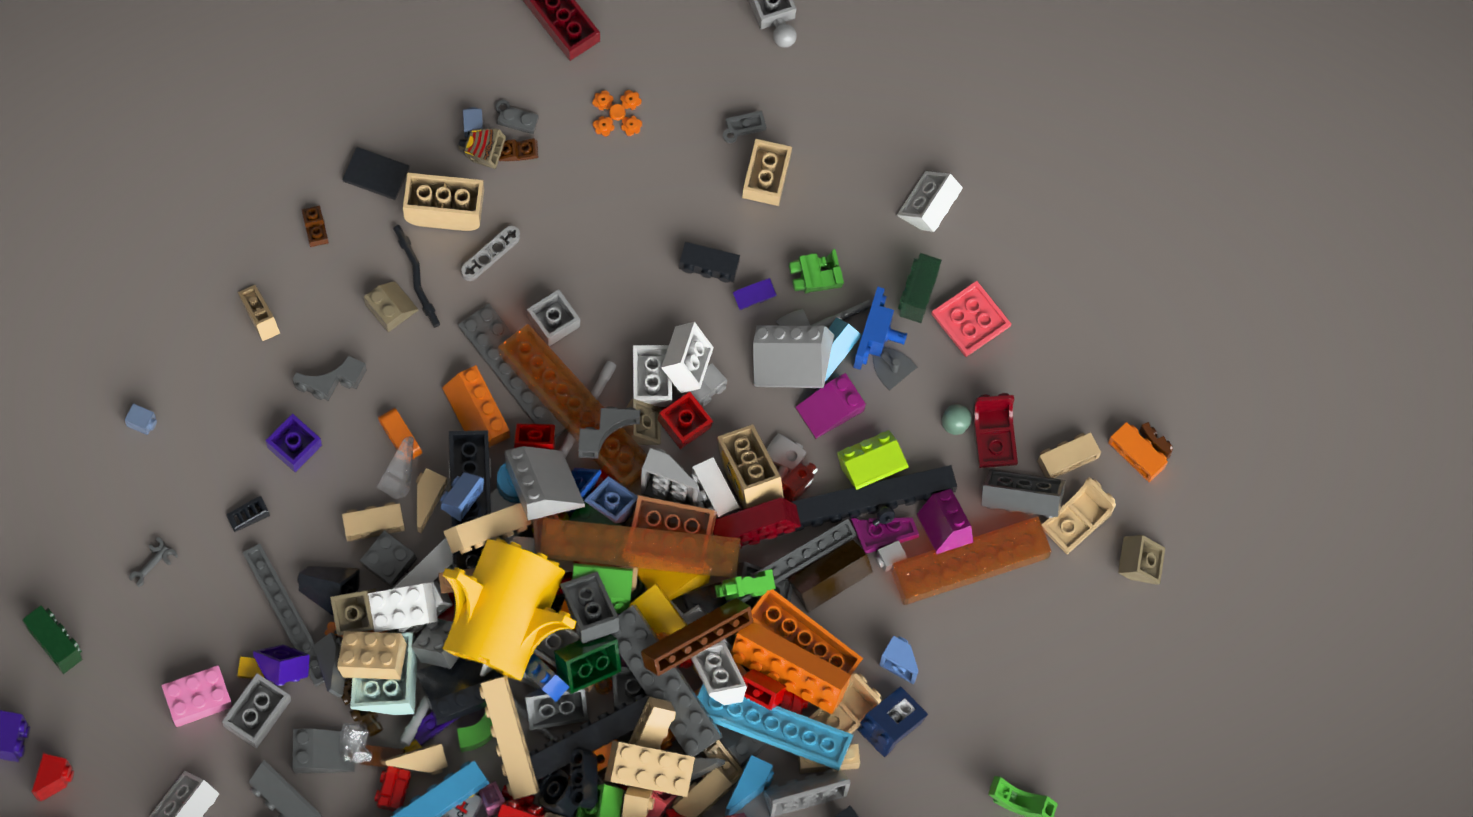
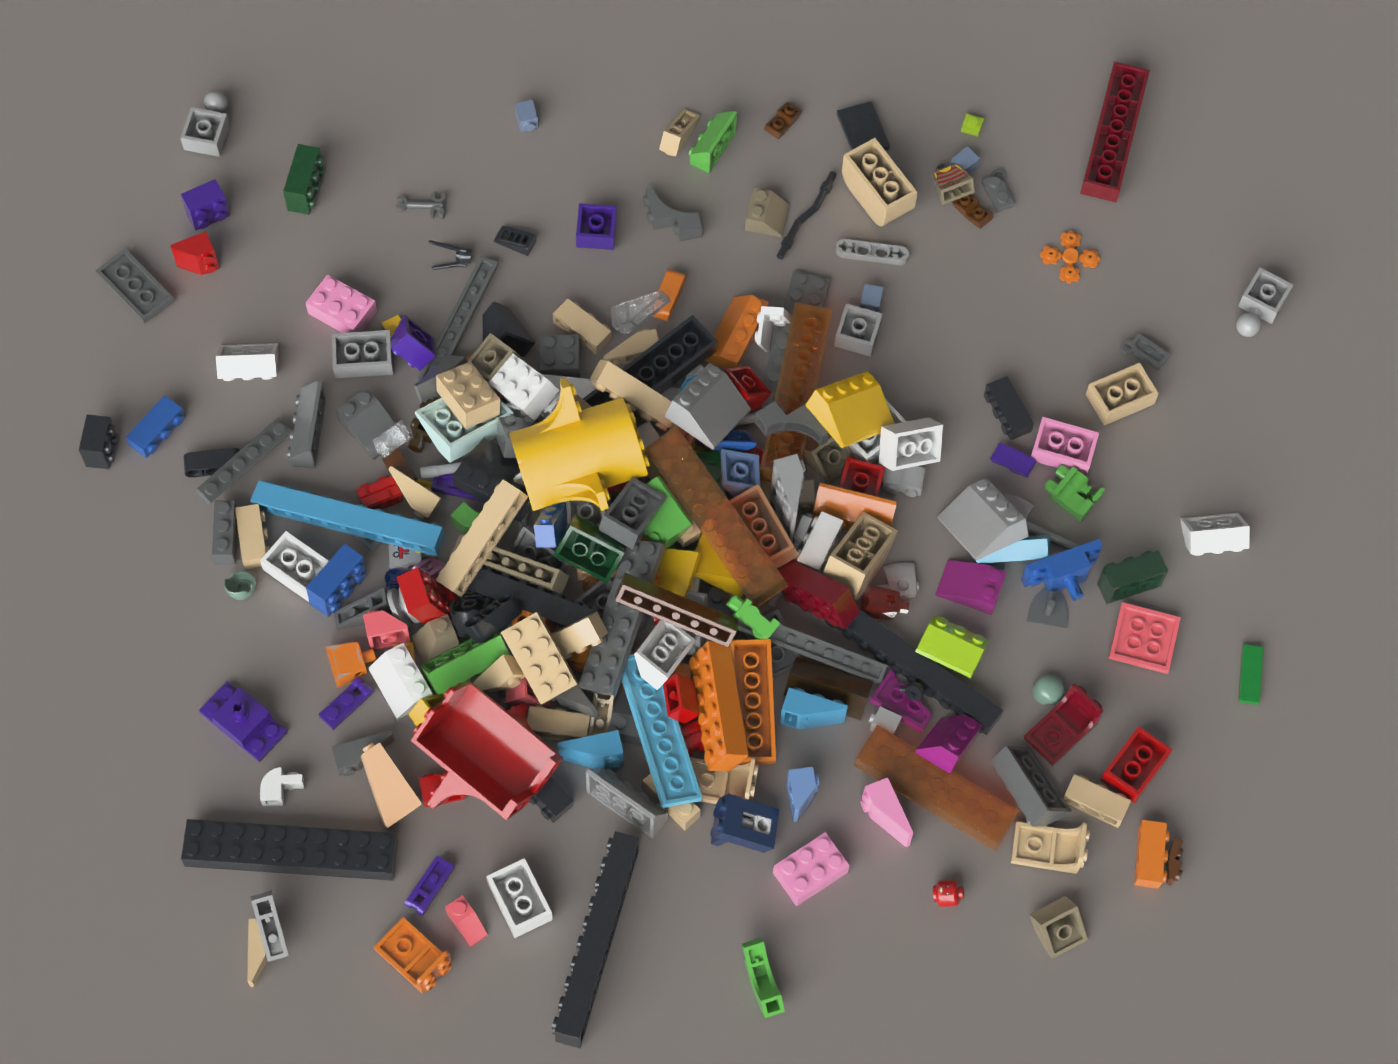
camera: 55 degrees right, 5 degrees down
(227, 565) = (462, 254): none -> black plant
(291, 293) = (713, 141): none -> bright green slope
(441, 89) = (972, 125): none -> lime plate
(462, 495) = (645, 358): medium blue slope -> none
(497, 369) = (766, 318): none -> white bracket
(533, 287) = (871, 297): none -> sand blue brick
(554, 727) = (525, 569): none -> dark tan brick
(631, 377) = (851, 408): none -> yellow slope
(703, 442) = (850, 505): none -> orange slope
(775, 248) = (1065, 445): none -> bright pink brick
(835, 608) = (809, 711): none -> dark azure slope
(963, 609) = (886, 810): none -> bright pink slope
(963, 700) = (811, 869): none -> bright pink brick
(1057, 269) = (1250, 674): none -> green tile
(1057, 617) = (948, 893): none -> red head
(1065, 406) = (1136, 764): none -> red brick

